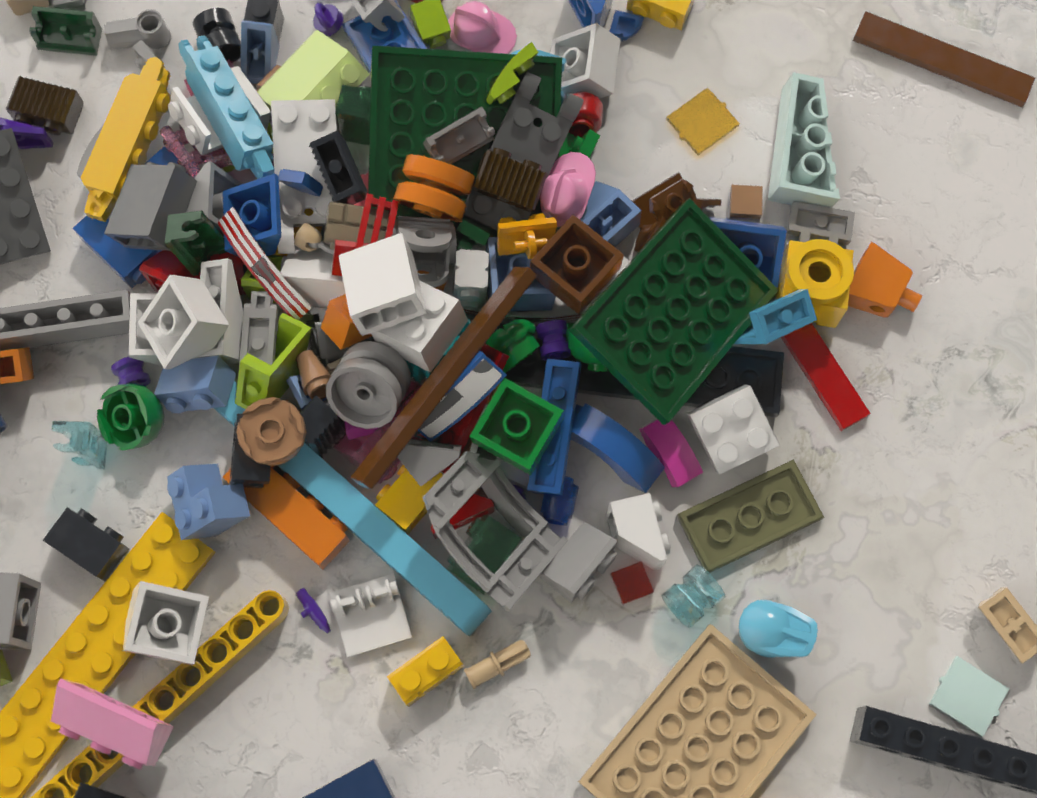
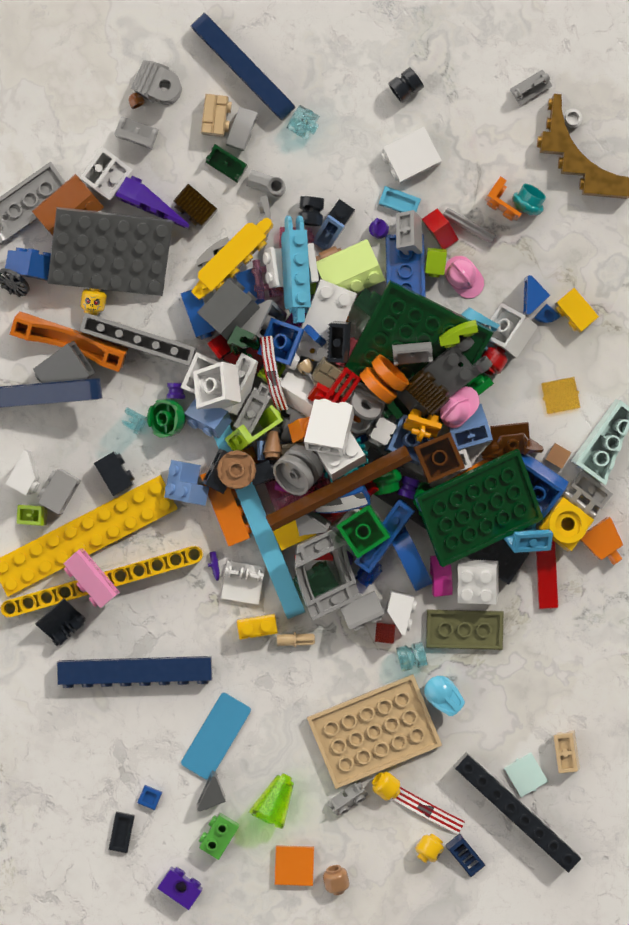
camera: 30 degrees right, 15 degrees up
(164, 622) = (138, 540): white slope -> none

